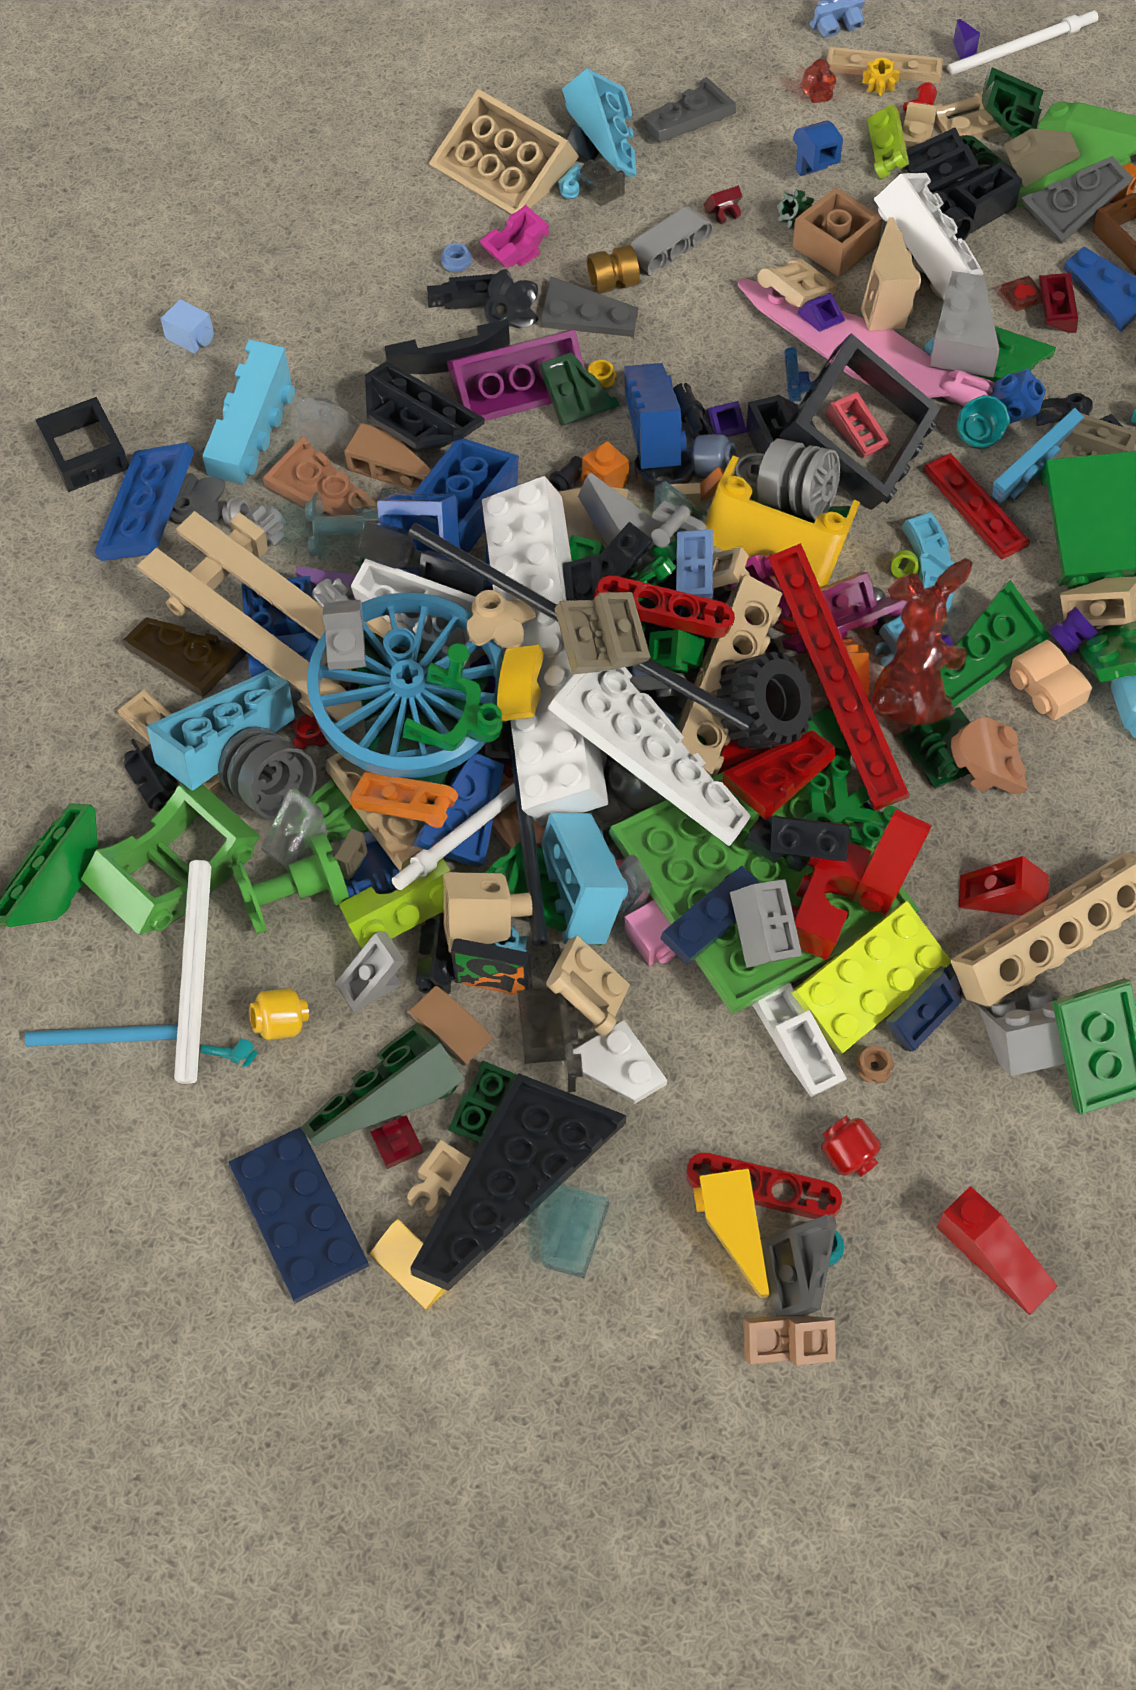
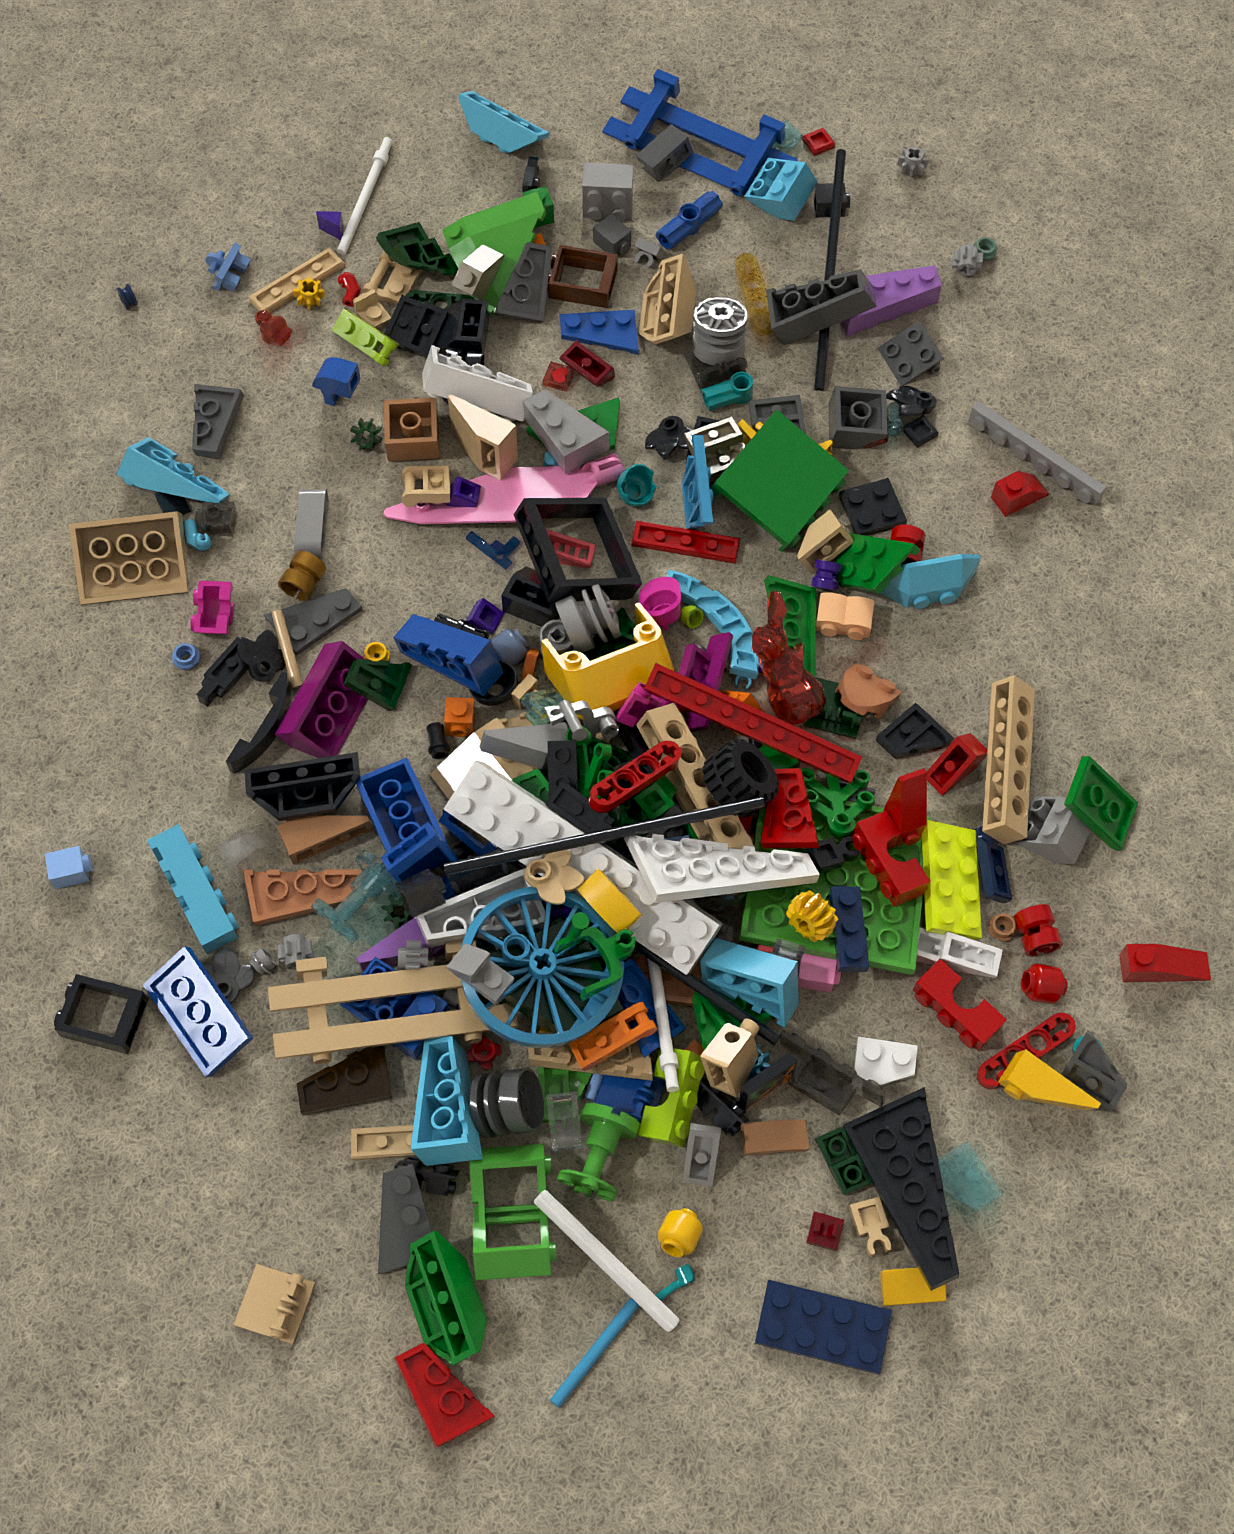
camera: 50 degrees left, 5 degrees up
(94, 779) = (402, 1217): none -> dark grey wing
(351, 854) = (607, 1096): dark tan tile -> none
(409, 1077) = (789, 1205): wedge -> none
(537, 309) = (287, 649): none -> tan bar
(588, 984) = (821, 1033): tan plate -> none
(602, 633) = (631, 827): dark tan slope -> none
(686, 864) = (812, 916): none -> yellow gear
(695, 562) = (612, 730): medium blue hinge -> none
(724, 201) = (313, 468): dark red tile -> none
(729, 567) = (626, 716): tan tile -> none
(743, 1116) = (974, 1025): none -> red arch
(765, 923) = (886, 907): light grey hinge -> none
(789, 1338) = (1130, 1112): medium nougat slope -> none
(810, 838) = (859, 833): black hinge -> none
(886, 529) = (662, 600): none -> dark pink piece
(902, 1096) = (1037, 928): none -> red wheel
(991, 828) = (913, 734): none -> black wing
(1021, 394) = (638, 448): blue brick -> none

